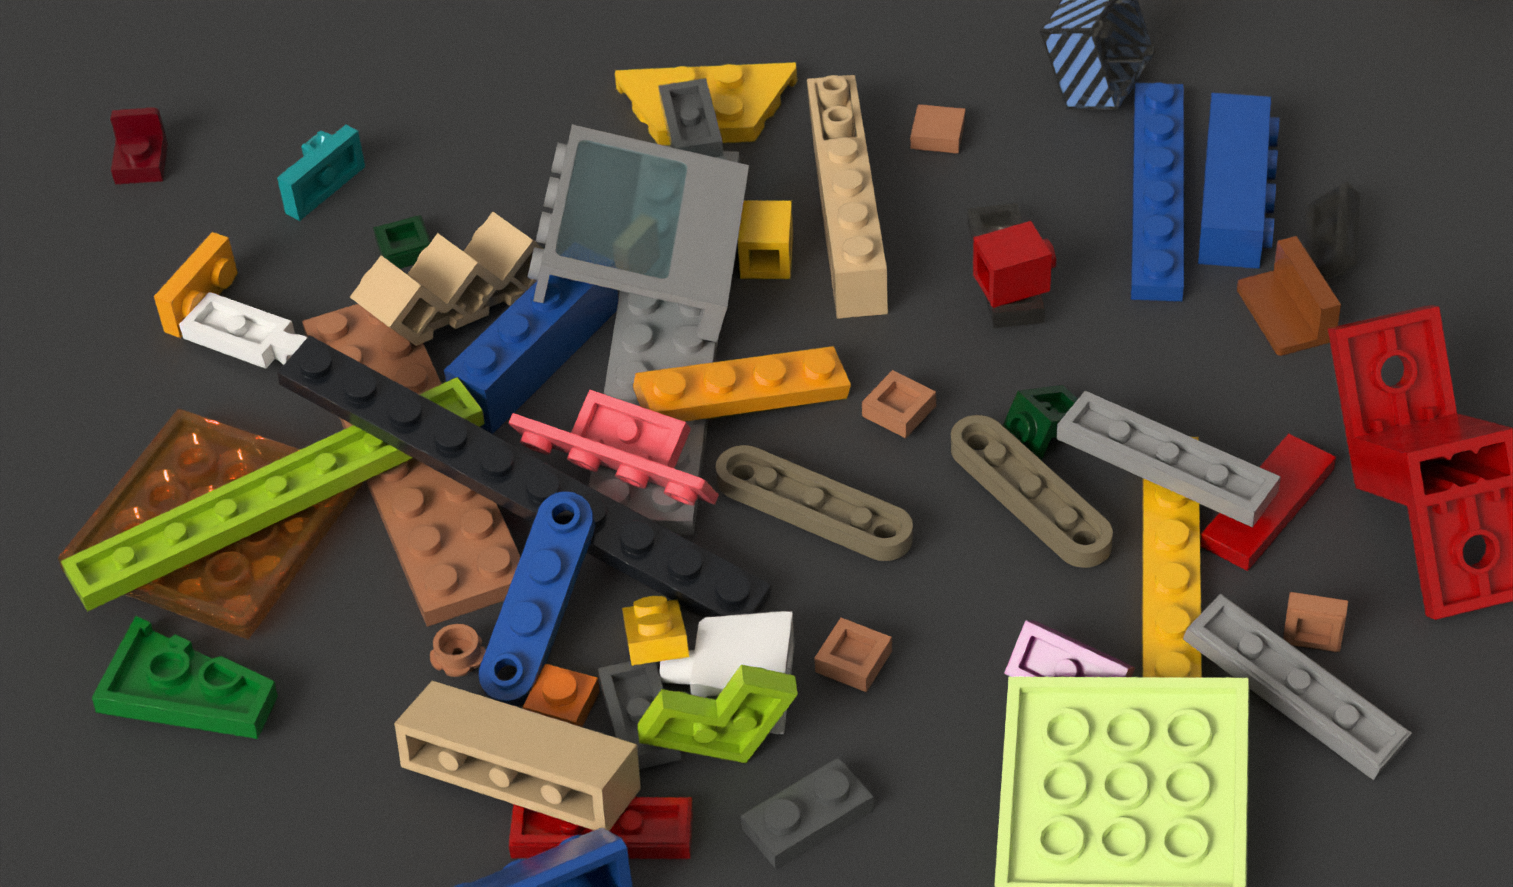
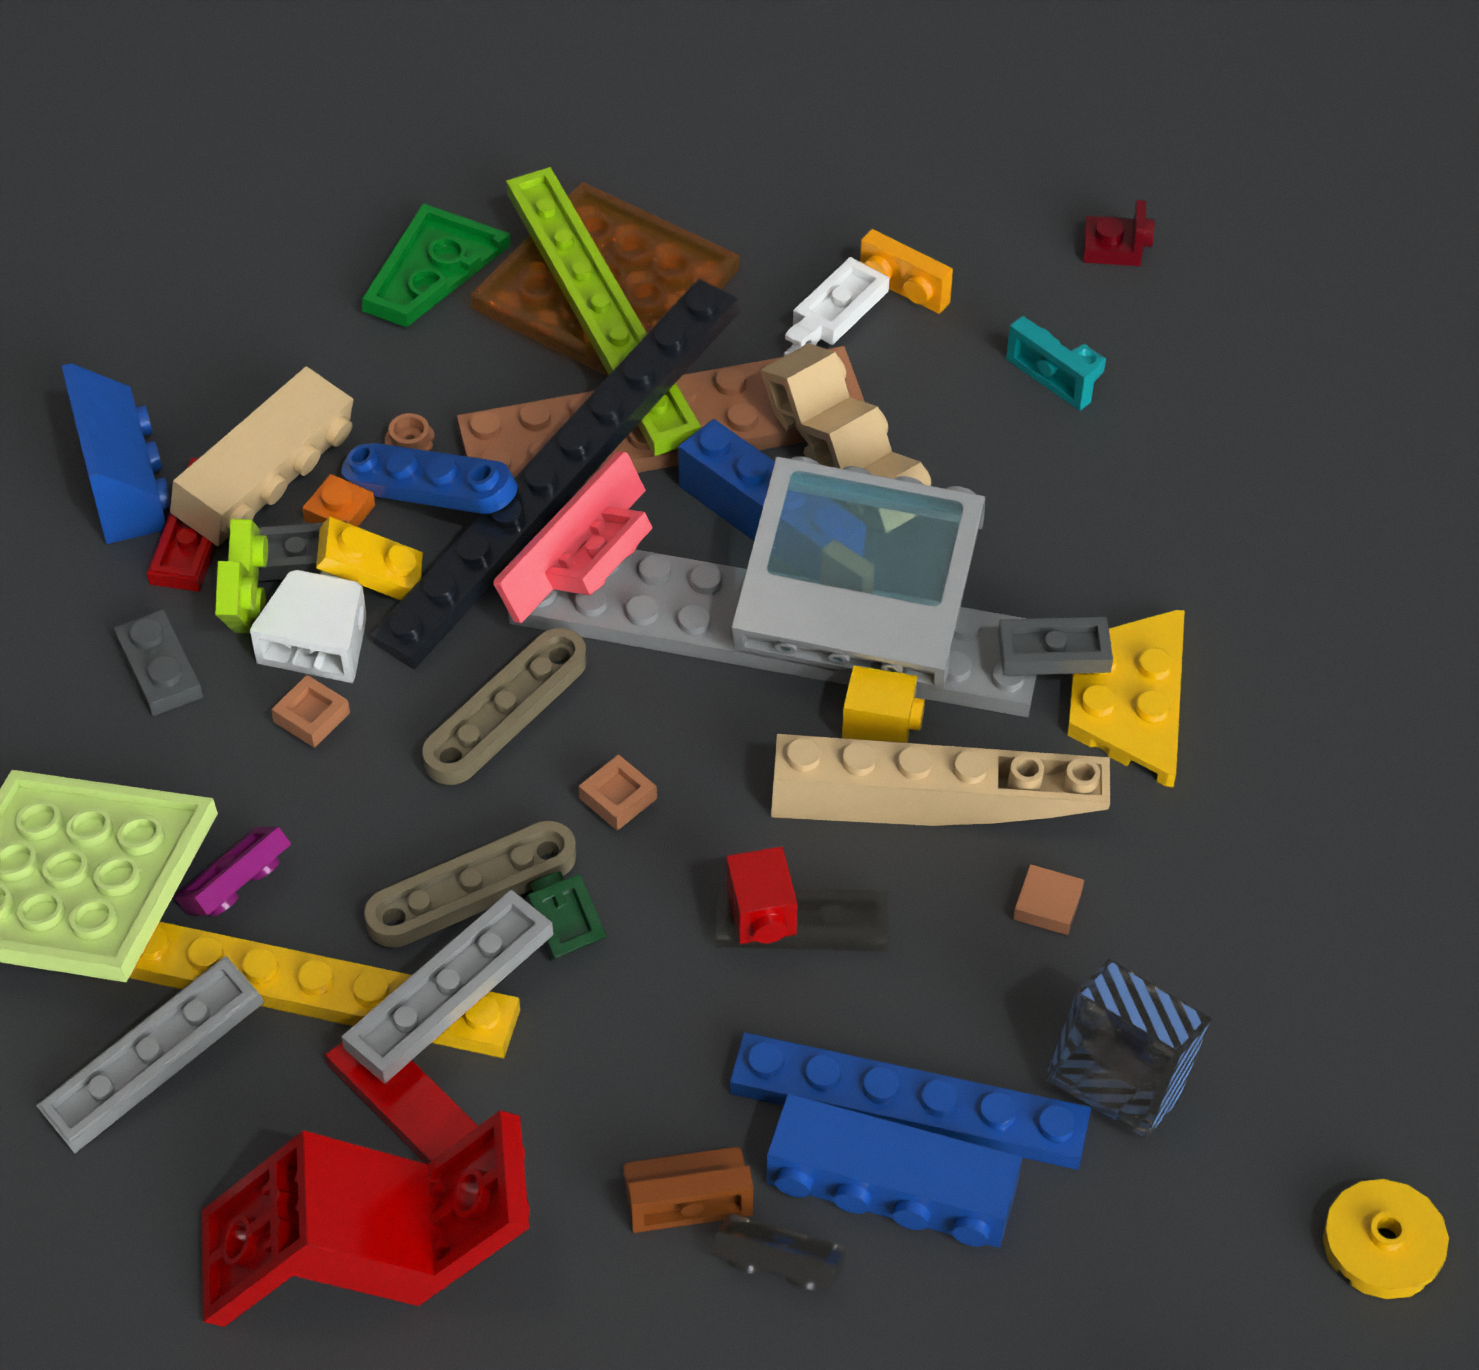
camera: 95 degrees right, 5 degrees up
(402, 240) = (949, 430): dark green tile -> none
(743, 385) = (664, 661): light orange plate -> none
(1315, 621) = (221, 1088): nougat tile -> none

